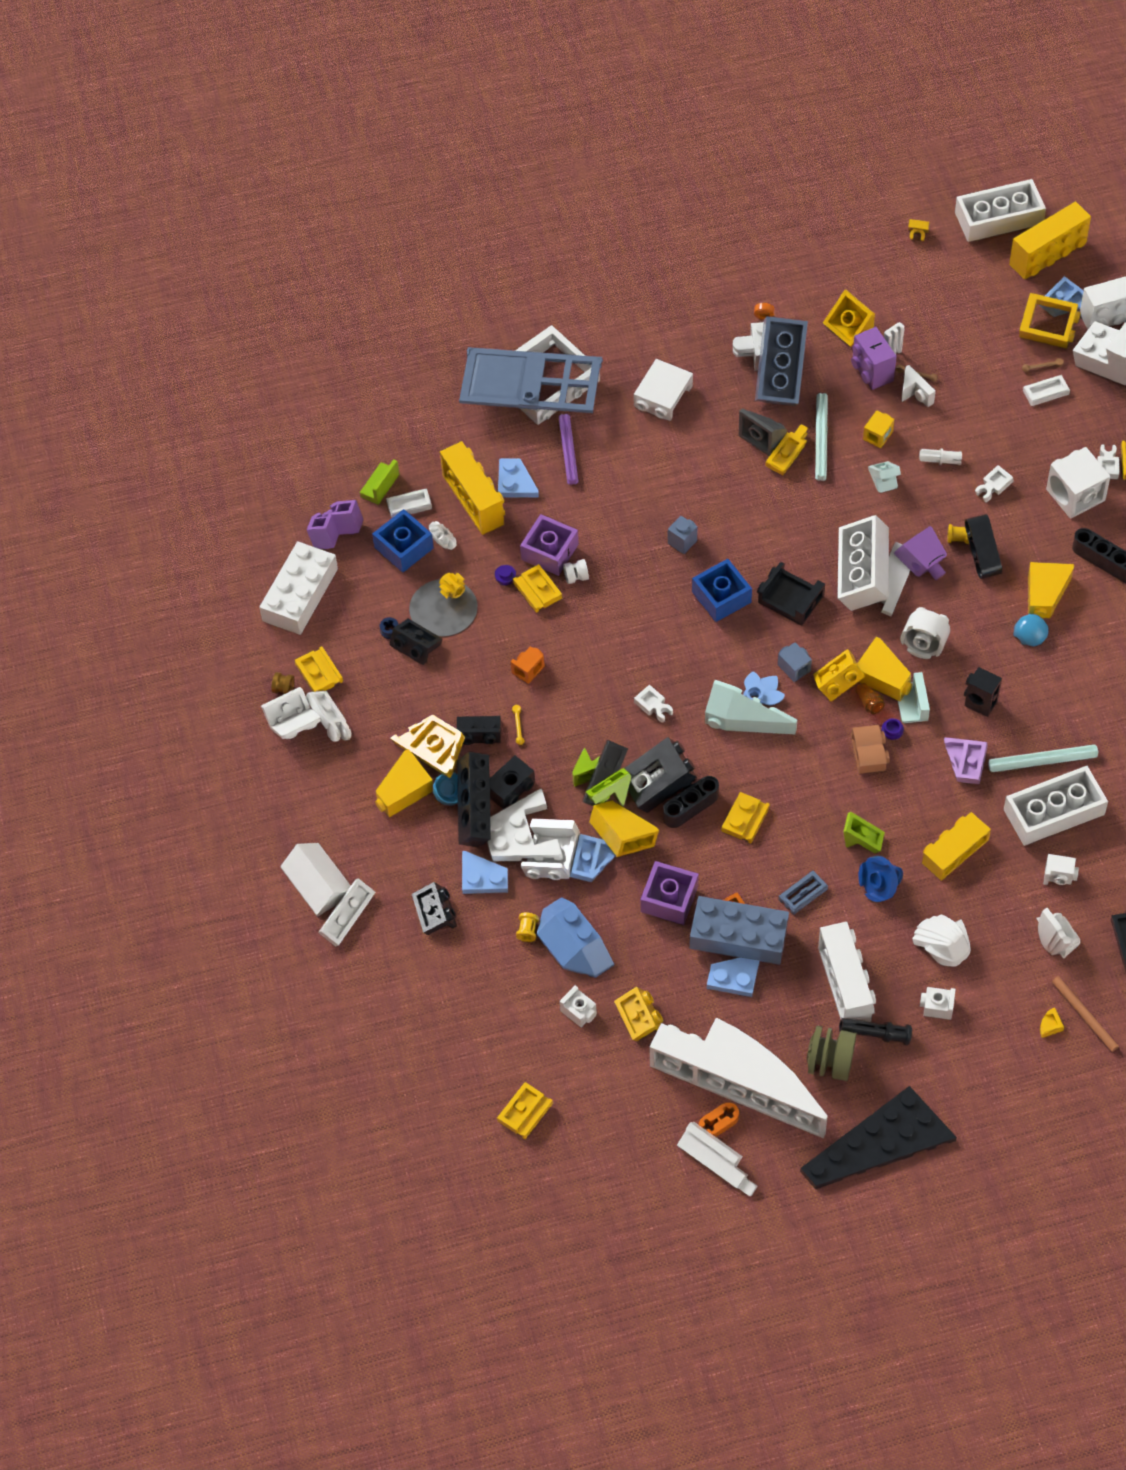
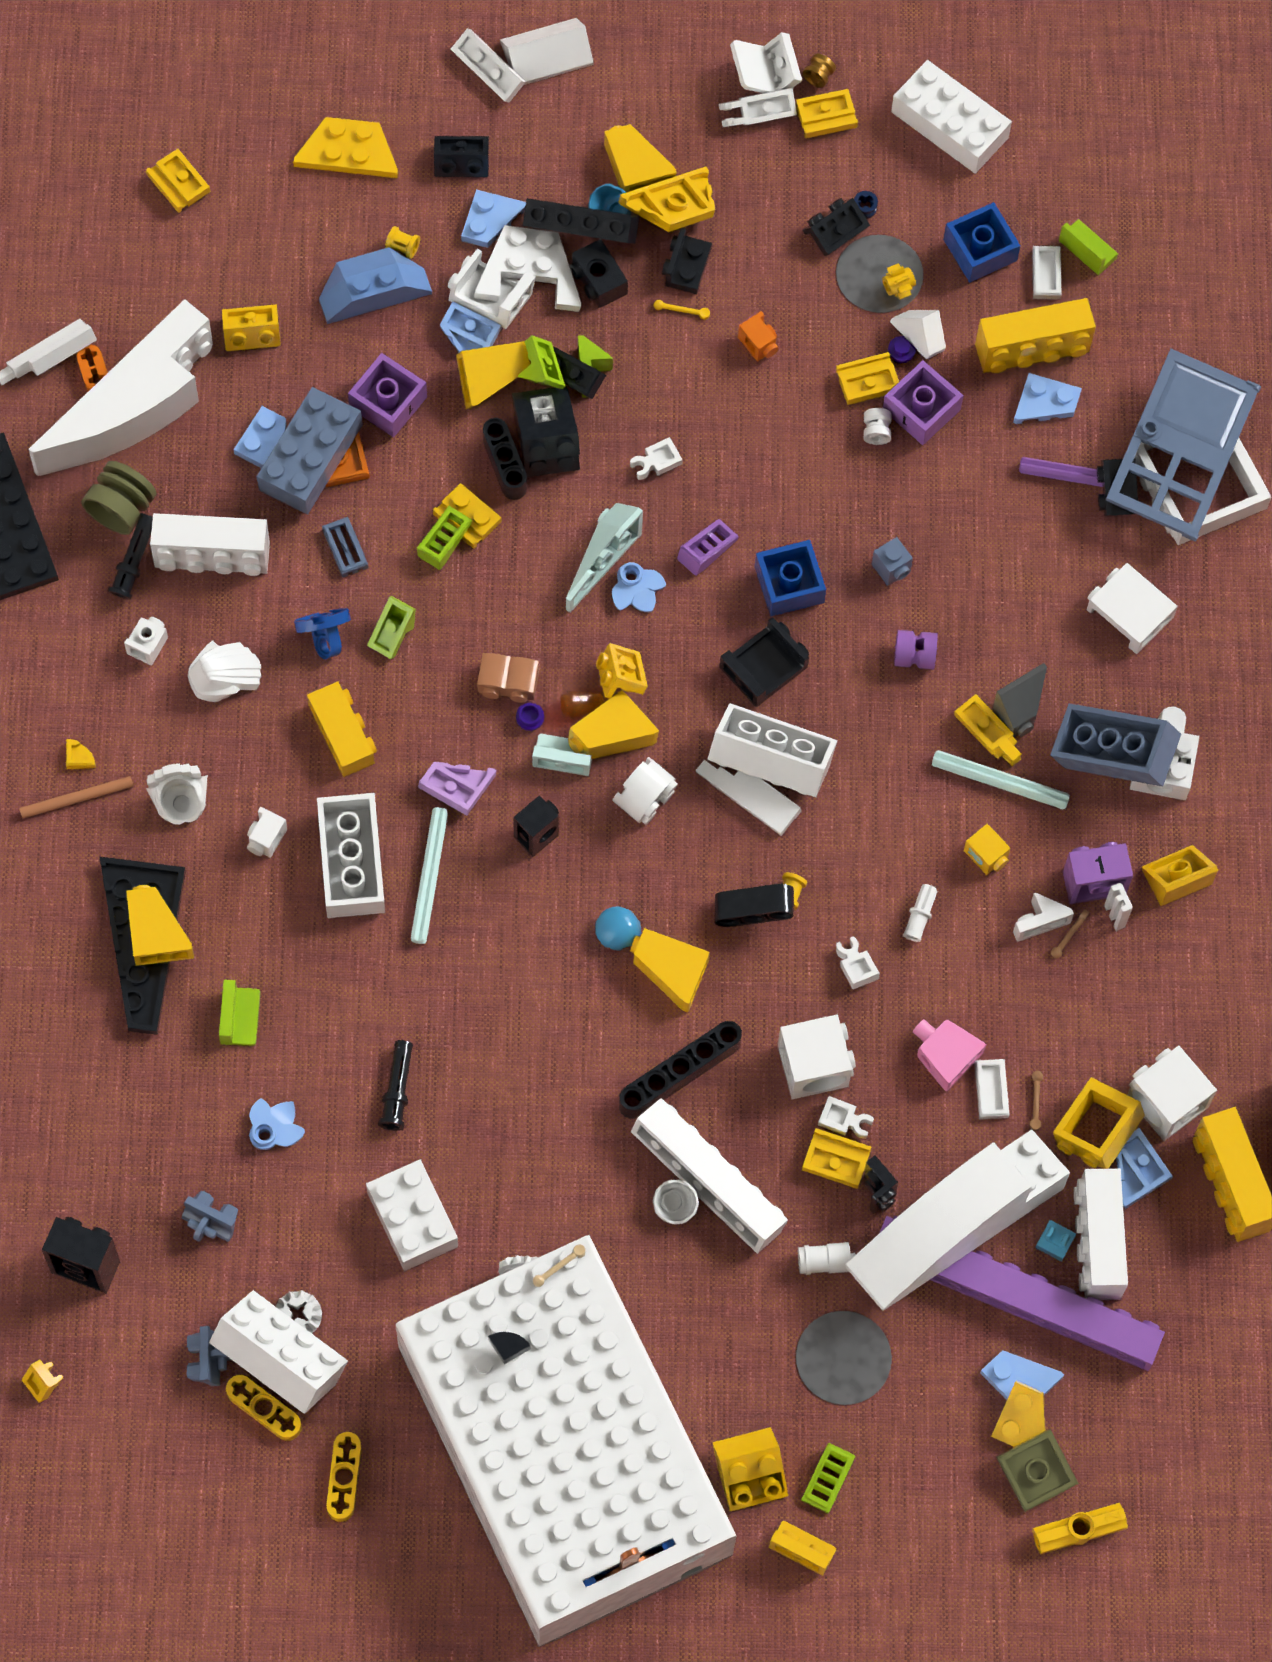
camera: 100 degrees right, 10 degrees up
(341, 519) = (1030, 165): medium lavender brick -> none
(442, 535) = (981, 278): white gear -> none
(451, 994) = (348, 148): none -> yellow wing
(485, 565) = (922, 330): none -> white slope
(573, 420) = (1106, 475): none -> black bracket
(579, 1015) = (279, 274): white brick -> none
(723, 661) = (694, 558): none -> medium lavender slope
(746, 503) = (905, 649): none -> medium lavender wheel
(763, 310) = (1227, 772): orange tile -> none
(783, 819) = (428, 542): none -> lime slope
(794, 661) = (662, 633): sand blue brick -> none
(884, 476) = (913, 832): light aqua slope -> none
(923, 554) = (767, 830): medium lavender torso -> none
(1010, 284) = (1171, 1091): none -> white brick
(1035, 416) = (947, 1051): none -> bright pink torso

